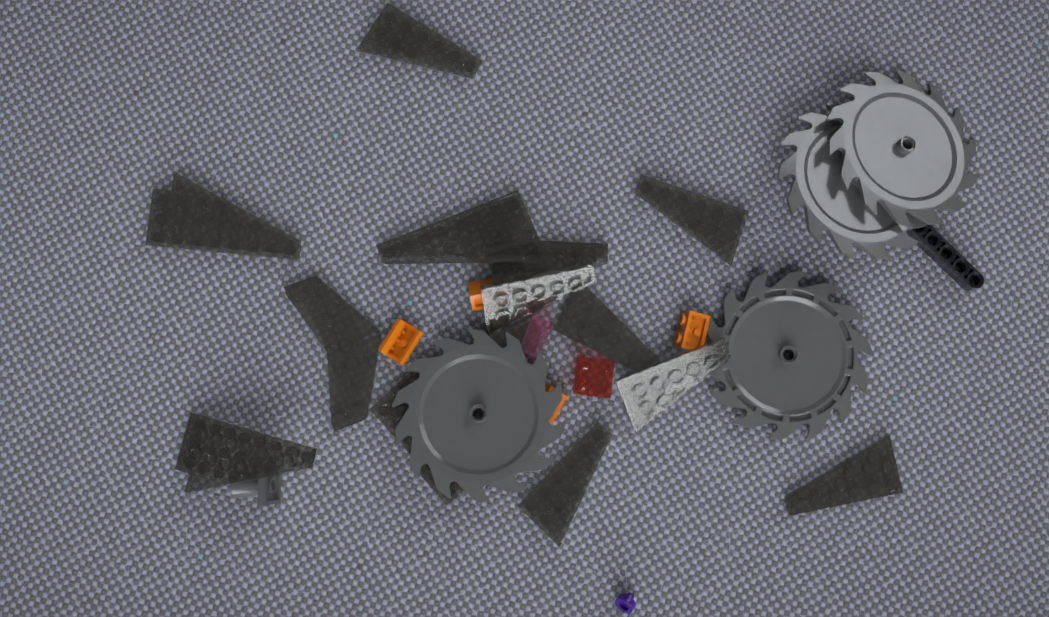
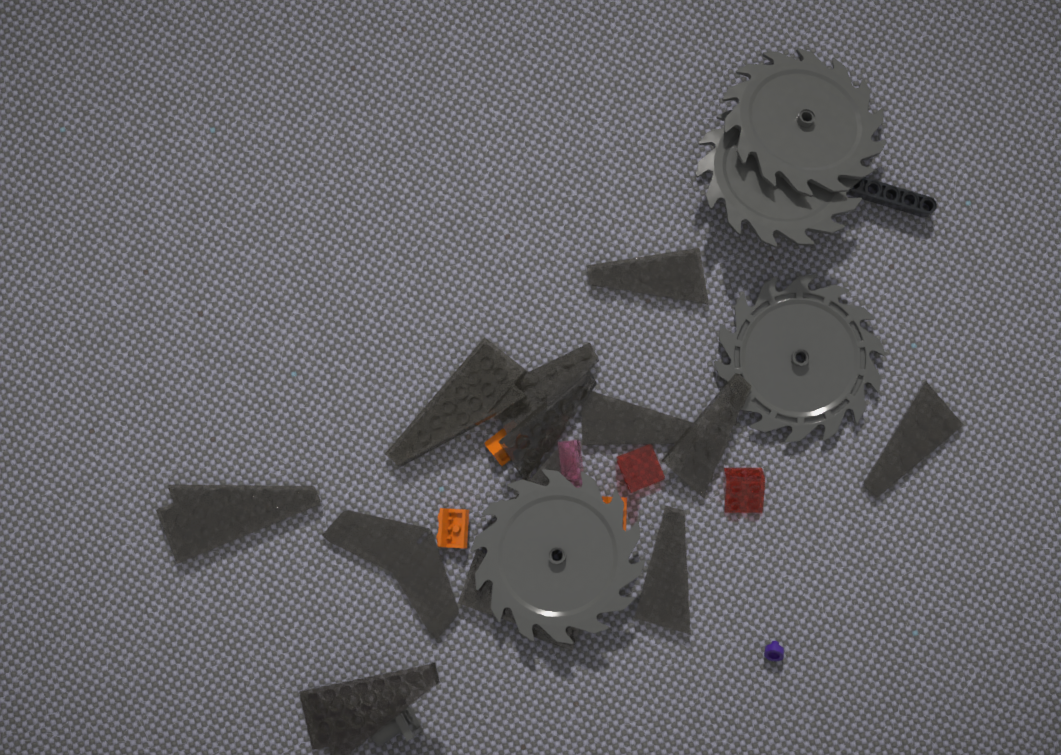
camera: 25 degrees left, 0 degrees up
(409, 41) = (314, 254): clear smoke wing -> none
(675, 445) = (744, 490): none -> clear red bracket
(691, 330) = (704, 380): orange bracket -> none

